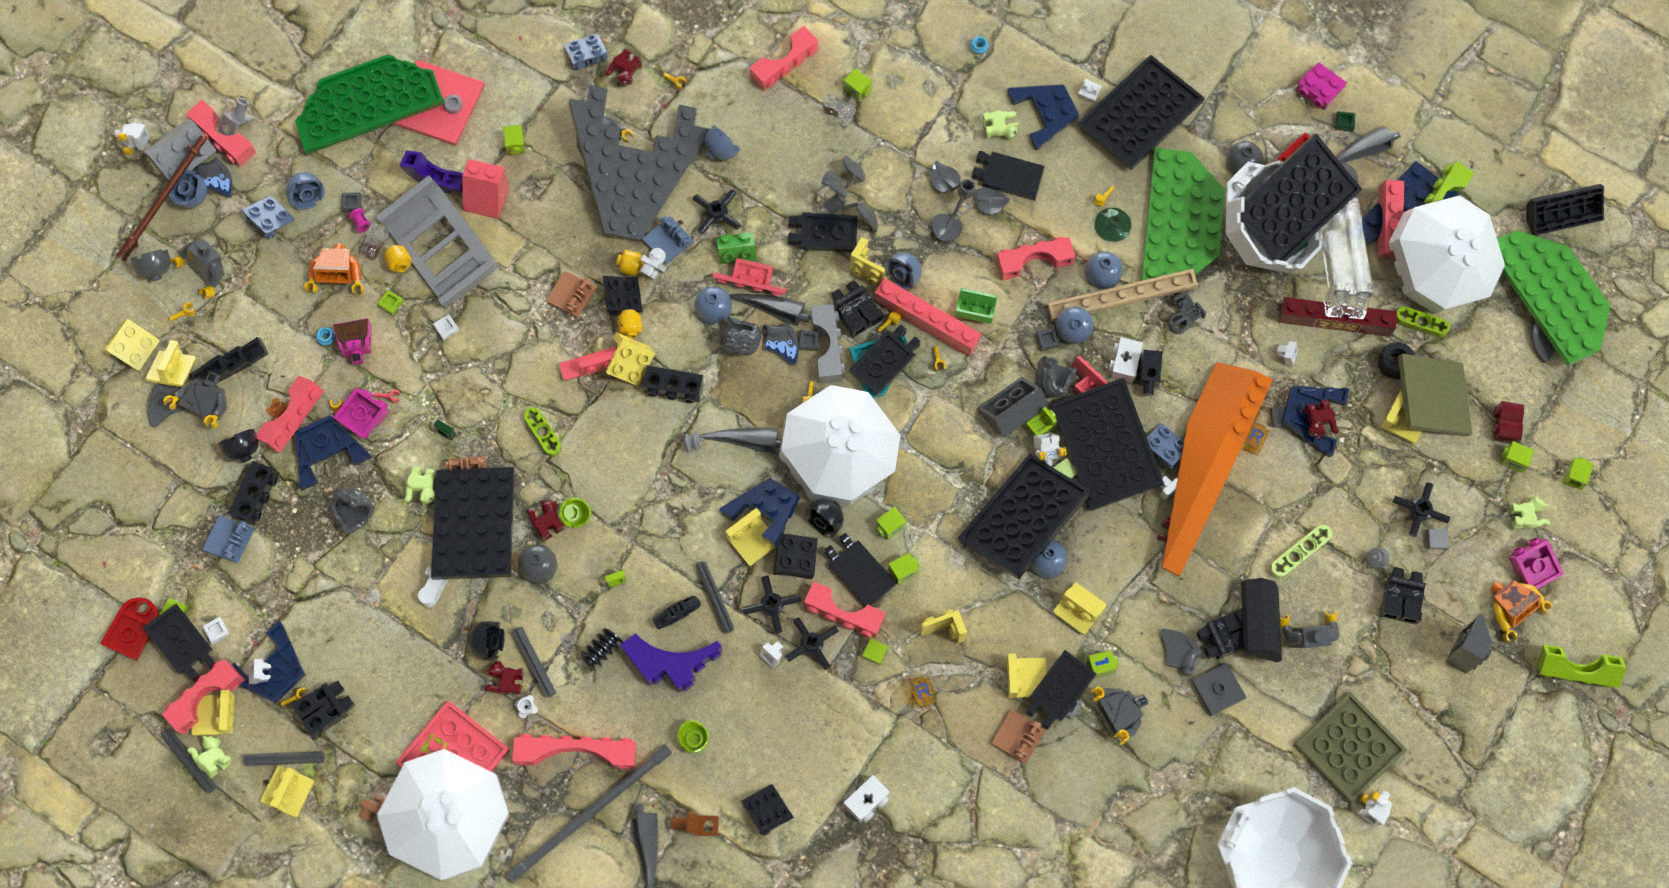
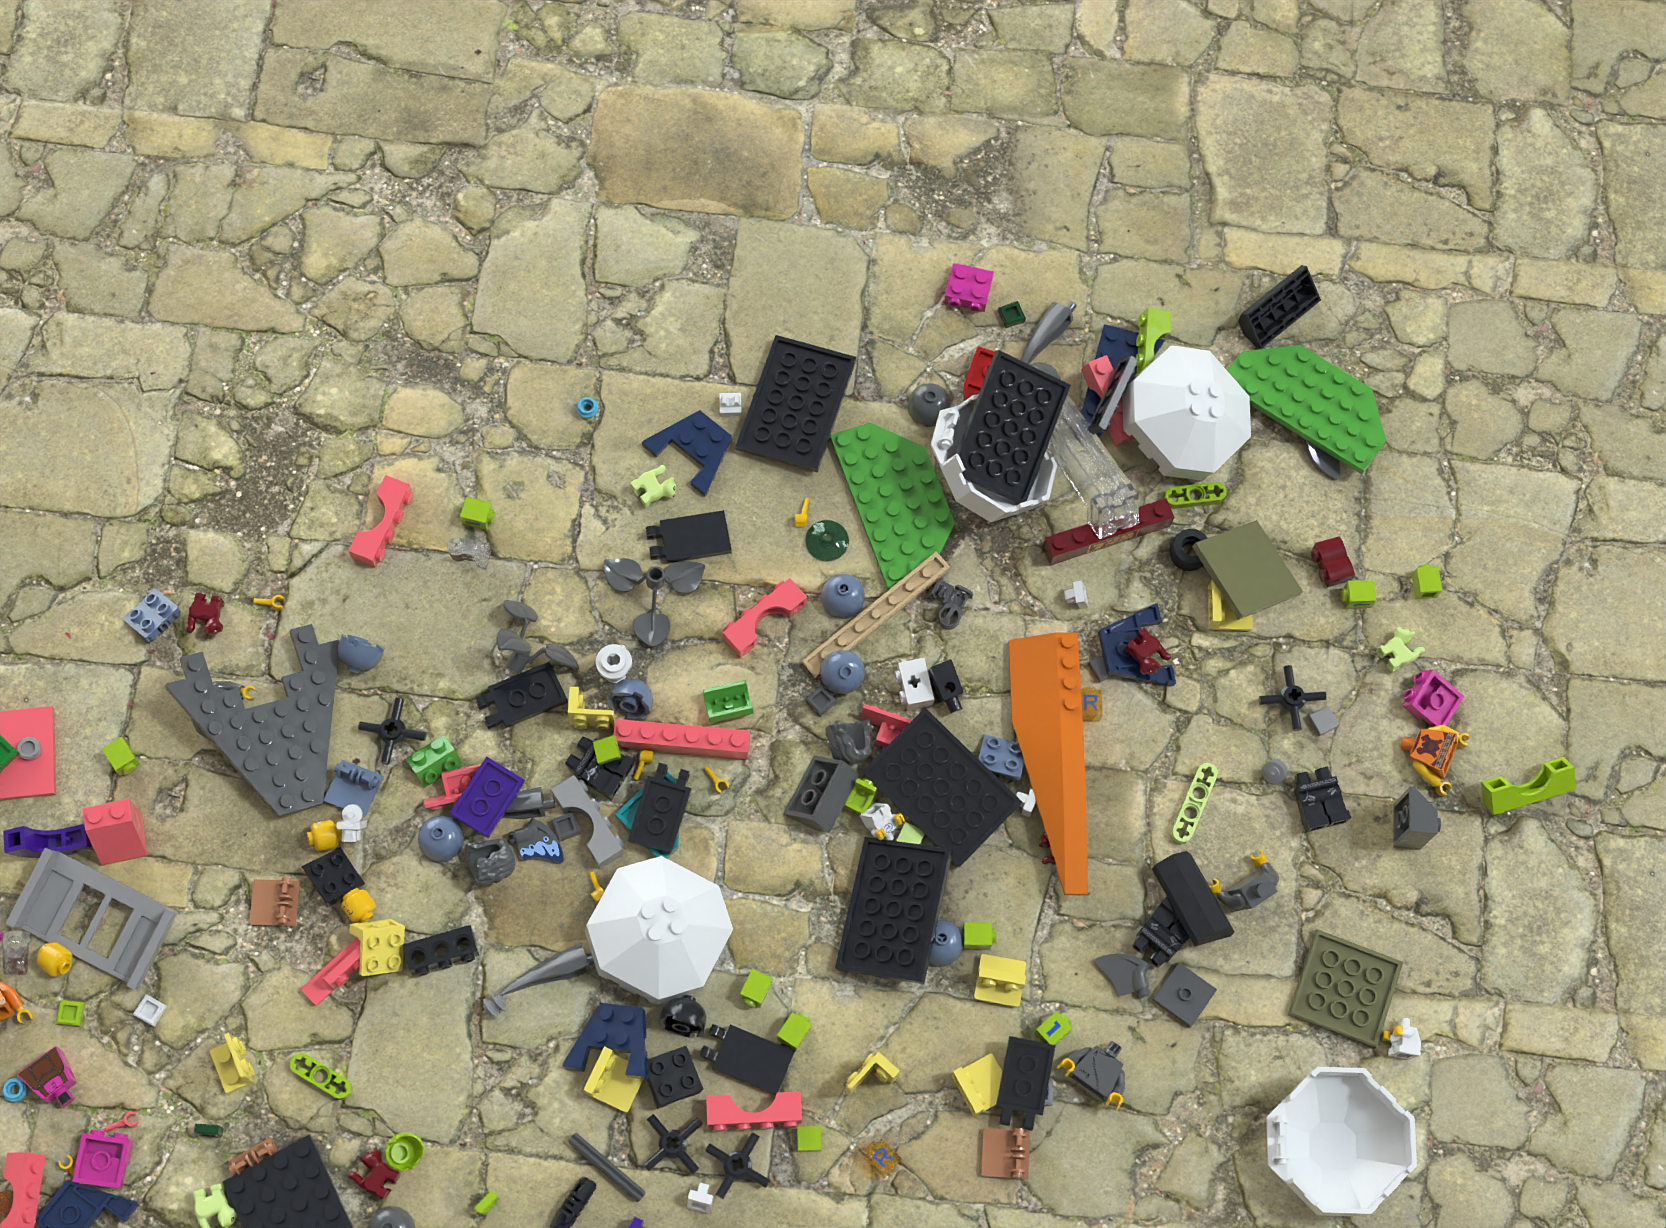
camera: 30 degrees left, 0 degrees up
(483, 392) = (231, 1065): none -> light yellow bracket
(761, 290) = (487, 797): none -> dark purple tile
(866, 297) = (607, 750): none -> lime tile
(903, 236) = (613, 662): none -> white piece
(1079, 567) = (978, 935): none -> lime brick
(1396, 209) = (1115, 389): none -> black plate

